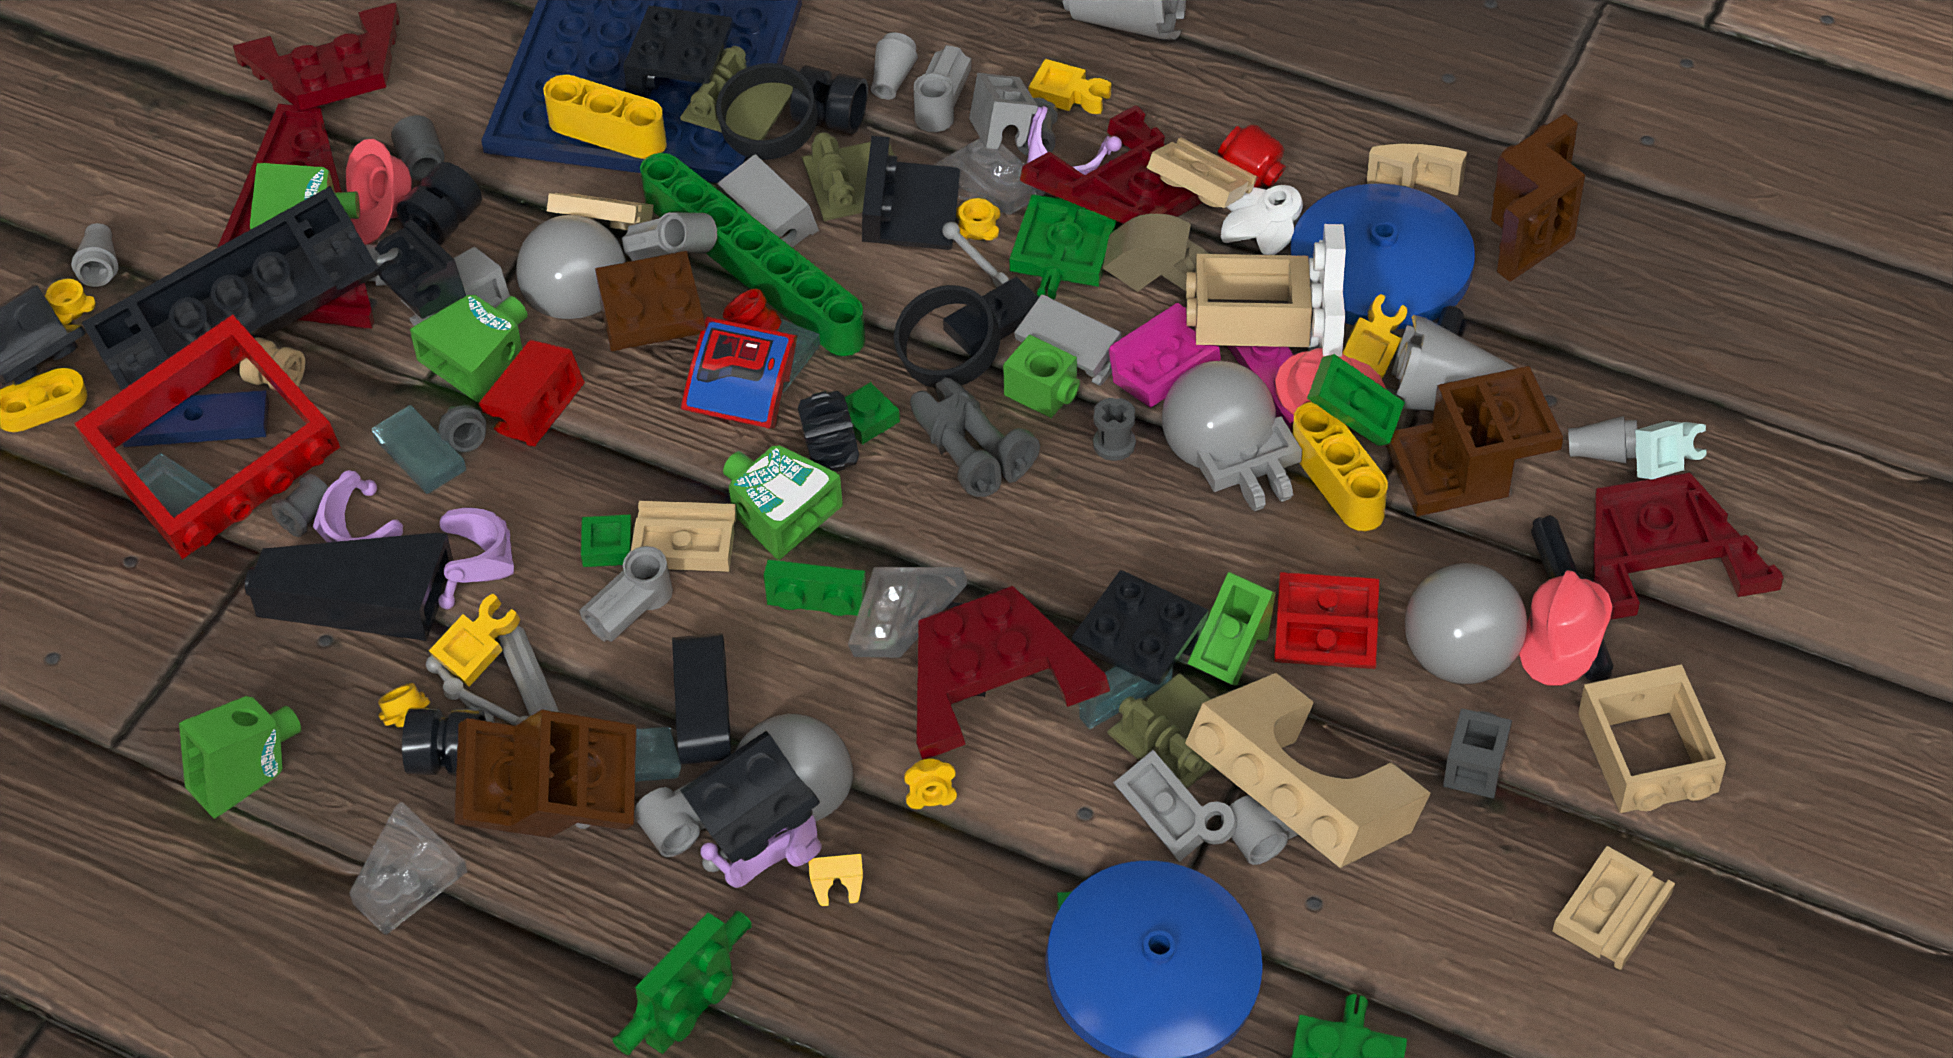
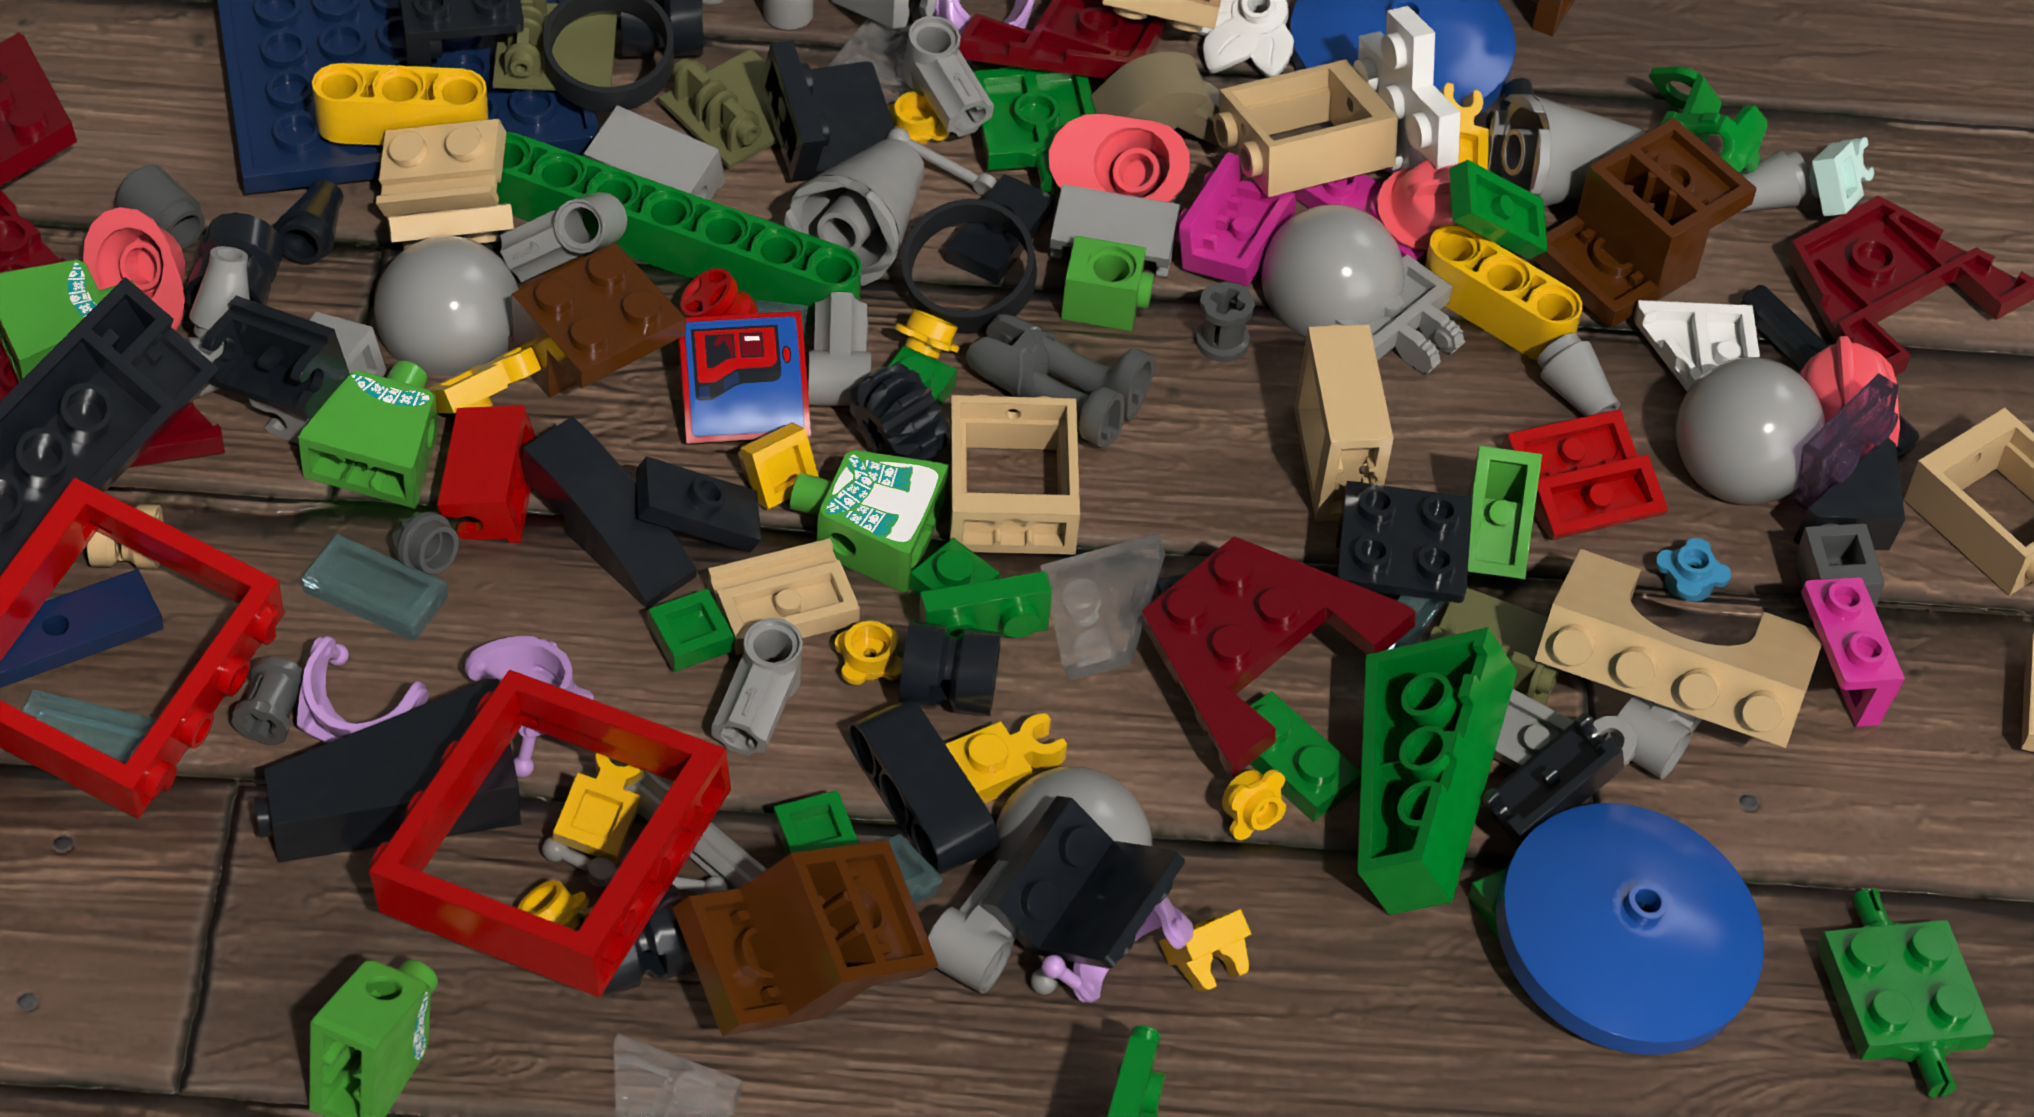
camera: 30 degrees left, 0 degrees up
(411, 206) = (222, 281): none -> light grey cone
(443, 697) = (594, 952): none -> red window
(510, 185) = (311, 223): none -> black cone
(554, 329) = (476, 384): none -> yellow plate
(594, 442) = (602, 512): none -> black slope
(610, 167) = (441, 167): none -> tan plate
(612, 700) = (814, 823): none -> green plate
(656, 453) = (697, 504): none -> black plate
(719, 584) = (869, 639): none -> yellow plate
(729, 436) = (776, 461): none -> yellow tile
(767, 623) = (950, 668): none -> black wheel
(768, 695) = (1003, 762): none -> yellow plate
(813, 550) = (950, 567): none -> green plate
(821, 370) = (839, 350): none -> light grey piece
(880, 532) = (1014, 520): none -> tan window
(892, 270) = (862, 204): none -> light grey cone
(892, 378) = (928, 334): none -> yellow plate
(986, 763) = (1312, 767): none -> green plate
(1001, 192) = (943, 75): none -> light grey piece
(1060, 794) = (1426, 762): none -> green wedge
(1097, 286) = (1120, 156): none -> coral piece
(1148, 517) = (1341, 415): none -> tan window
(1156, 837) = (1554, 779): none -> black hinge
(1363, 543) = (1577, 376): none -> light grey cone
(1368, 727) = (1692, 571): none -> dark azure plate
(1444, 807) = (1855, 646): none -> dark pink bracket
(1482, 539) = (1697, 335): none -> white wing
(1527, 701) = (1866, 497): none -> black slope
(1528, 654) = (1846, 439): none -> clear purple plate
(1574, 386) = (1701, 116): none -> green piece

